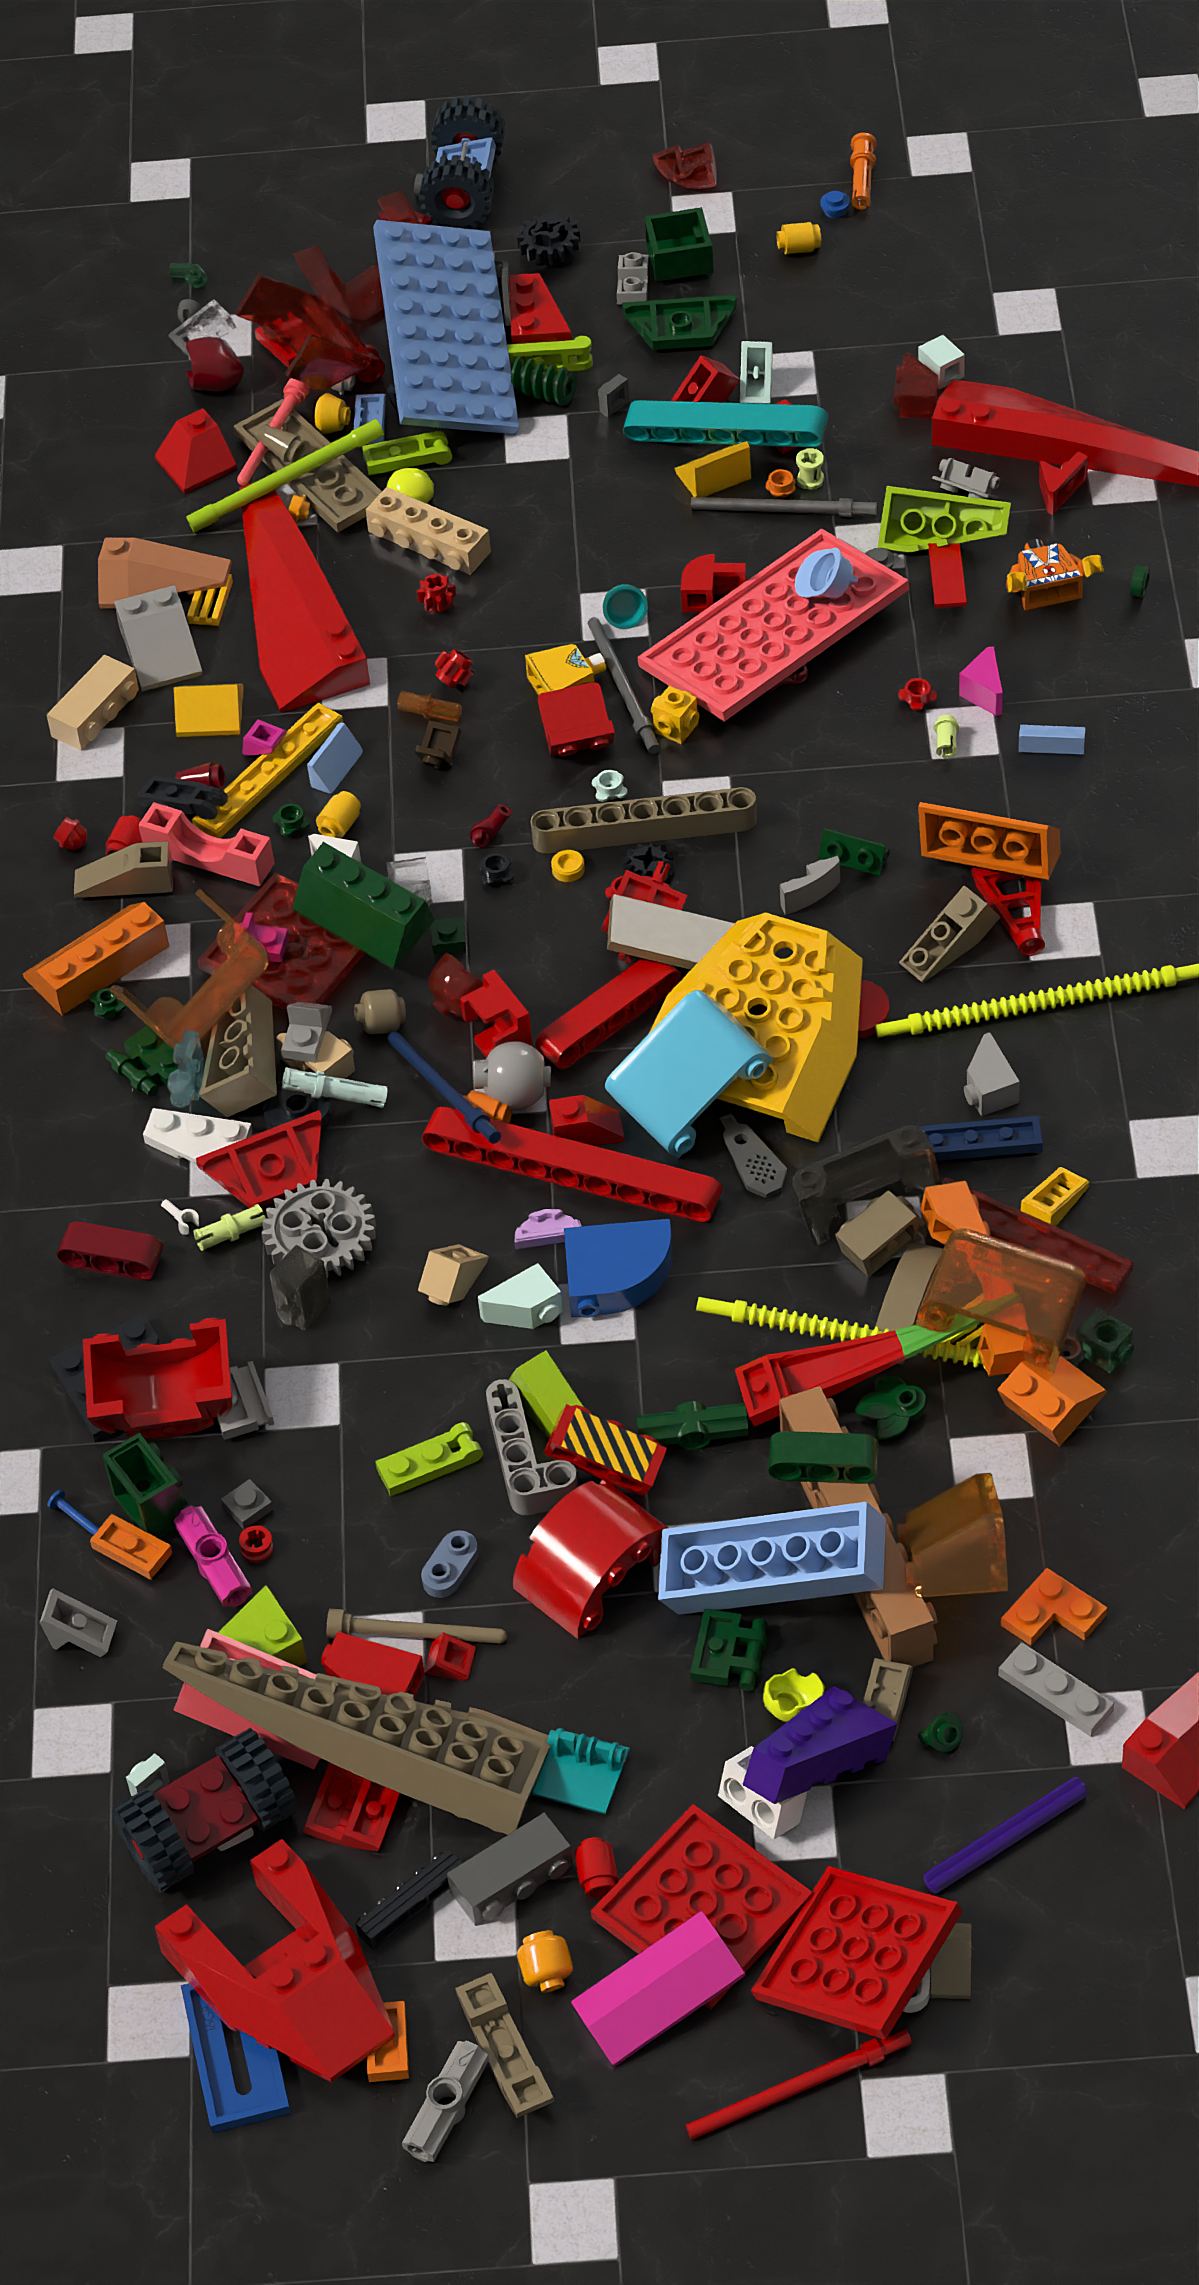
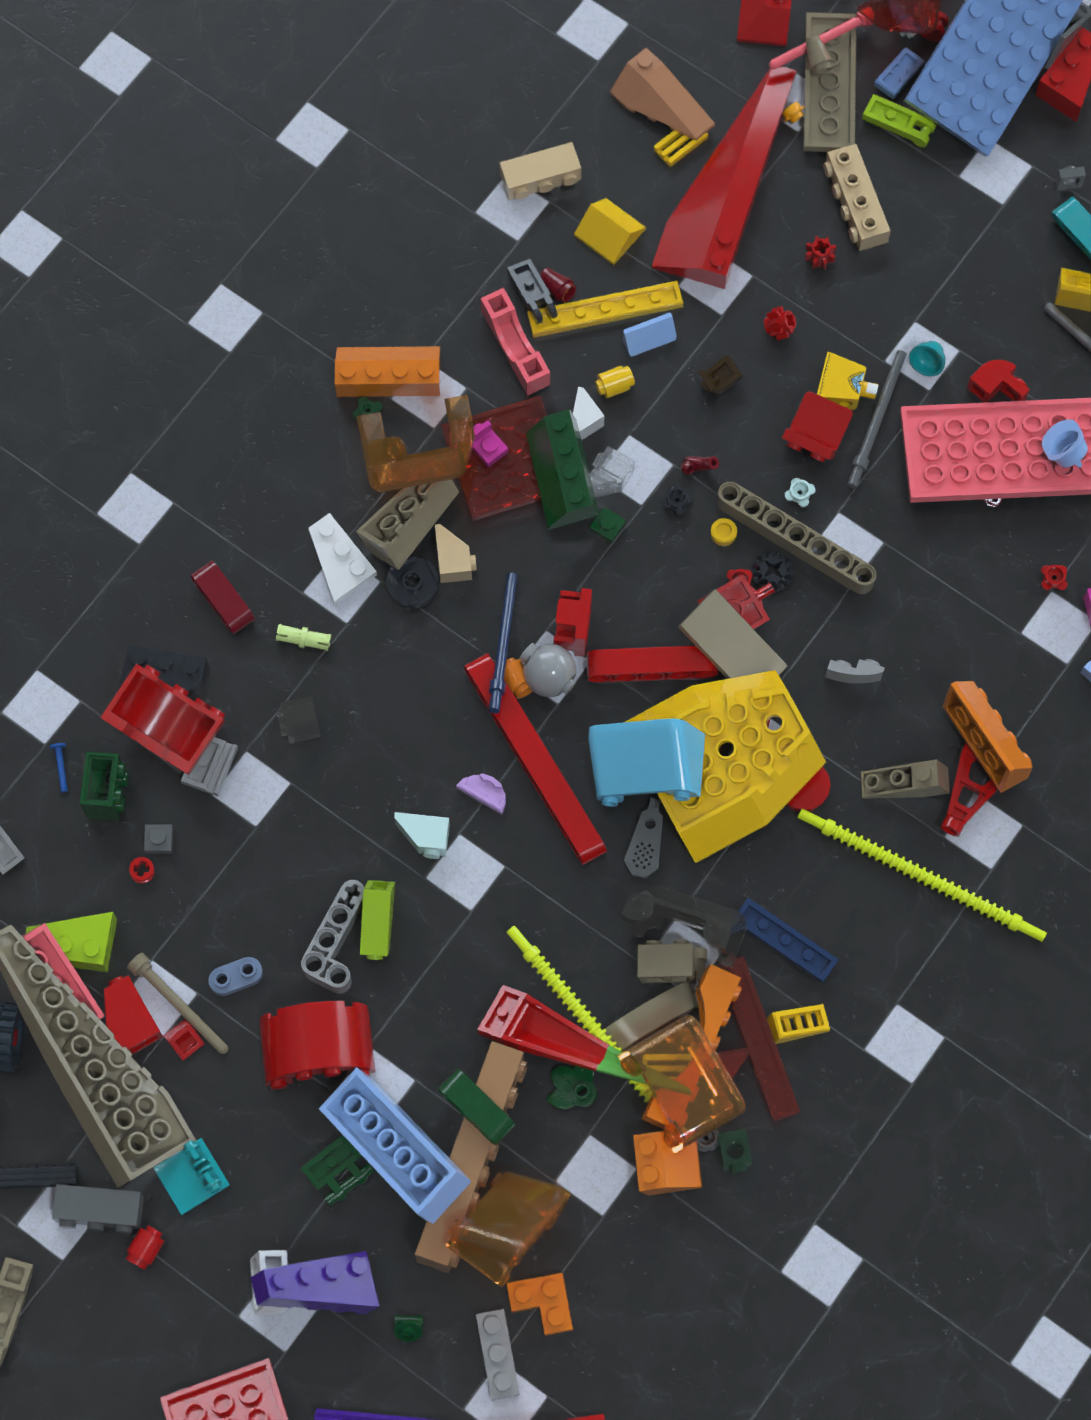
camera: 35 degrees right, 20 degrees up
(70, 834) = (445, 265): red plate -> none
(124, 834) = (470, 296): red brick -> none
(131, 1546) = (70, 815): orange plate -> none
(132, 870) = (453, 323): dark tan slope -> none
(150, 1052) = (360, 483): dark green plate -> none
(158, 638) = (620, 151): light grey slope -> none
(182, 1216) = (284, 602): white hand -> none
(187, 1079) = (366, 505): clear light blue hinge -> none
(213, 512) = (868, 90): lime piece -> none
(220, 1570) = (105, 877): dark pink piece -> none
(262, 738) = (618, 283): dark pink slope -> none
(268, 1162) = (361, 612): red wing -> none
(290, 819) = (586, 353): dark green plate -> none
(305, 1031) = (454, 536): light grey slope -> none
(331, 414) = (876, 51): yellow cone -> none
(332, 1211) = (327, 682): light grey gear -> none
(344, 1089) = (440, 589): light aqua pin -> none
(350, 1810) = (43, 1096): red slope -> none
(380, 1011) = (516, 552): dark tan head -> none
(412, 483) = (877, 151): neon yellow hair -> none
(429, 706) = (742, 339): clear orange axle -> none
(429, 1459) = (282, 895): lime plate -> none
(449, 983) = (572, 571): clear red cylinder -> none
(451, 1273) = (401, 778): tan slope -> none
(543, 382) = (1032, 131): dark green piece -> none
(545, 1961) = (67, 1282): light orange head -> none
(555, 353) = (1057, 112): lime plate -> none
(586, 1121) = (565, 735): red slope -> none
(605, 1449) = (376, 981): brick -> none
(616, 1265) = (497, 853): blue brick -> none
(658, 1988) = (110, 1353): dark pink slope -> none
(675, 714) = (885, 471): yellow brick -> none
(694, 1424) = (445, 1001): dark green piece -> none
(704, 1870) = (180, 1321): red plate -> none
(791, 1693) = (343, 1233): neon yellow hair -> none
(853, 851) = (899, 657): dark green hinge -> none
(888, 1688) = (396, 1277): dark tan plate -> none
(946, 730) = (1042, 625): yellowish green pin -> none
(991, 1079) = (834, 907): light grey slope -> none

